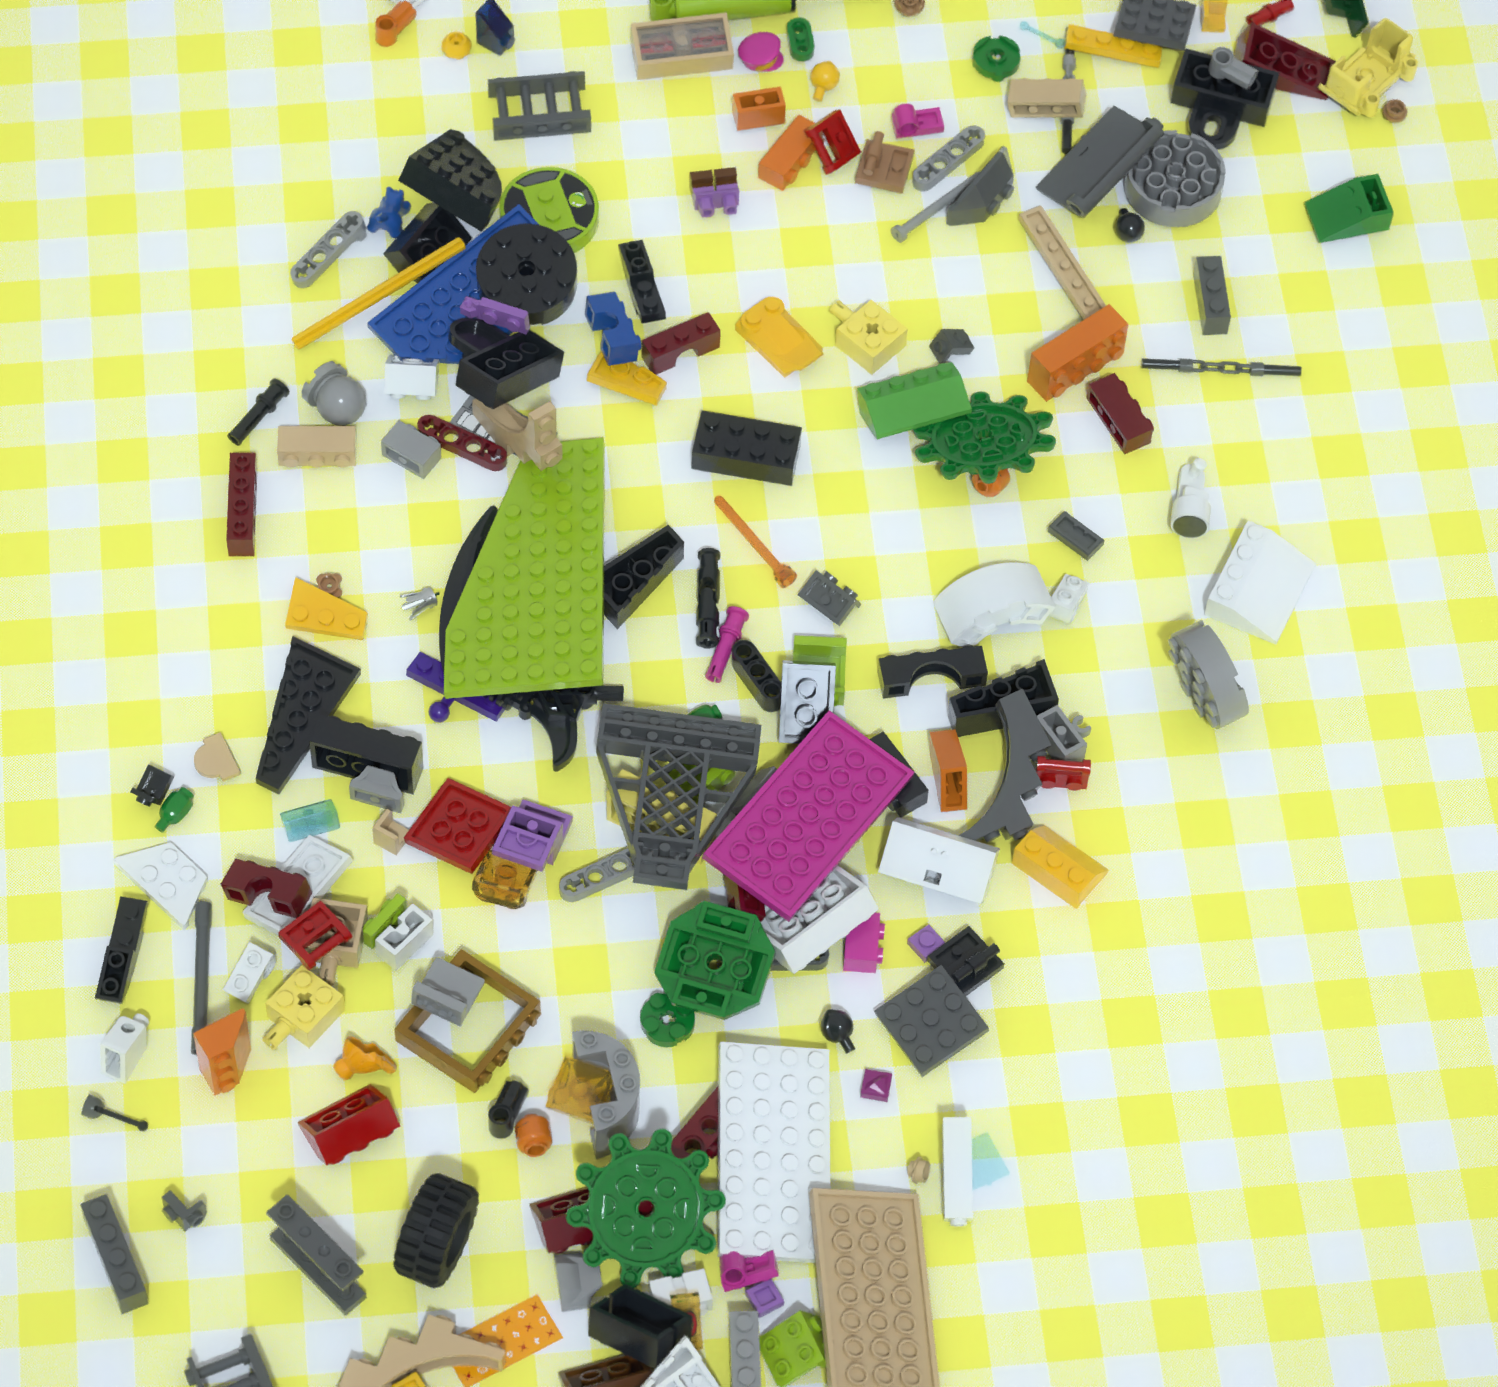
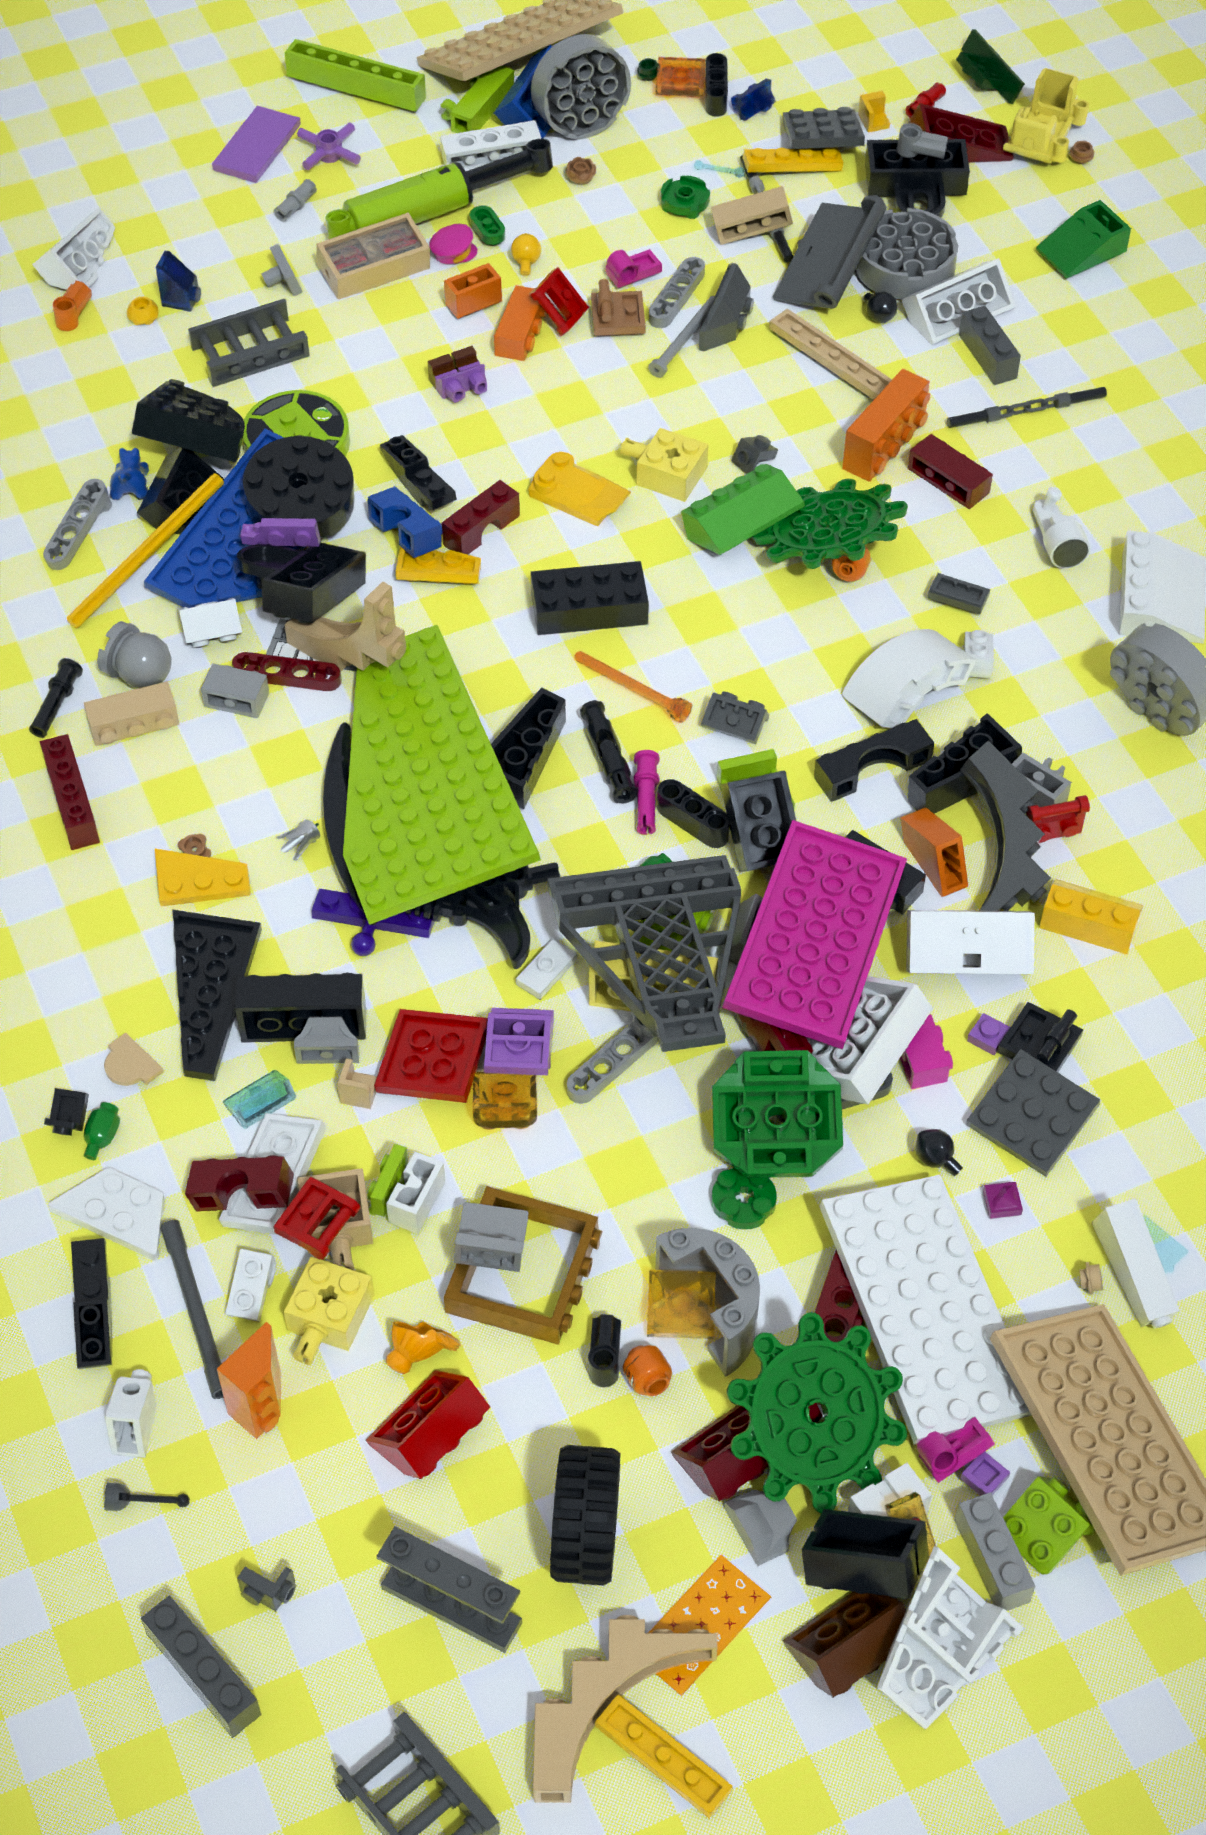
camera: 15 degrees left, 5 degrees down
(579, 779) = (546, 969): none -> white plate
(594, 39) = (281, 272): none -> light grey tile
(1213, 234) = (939, 308): none -> white slope

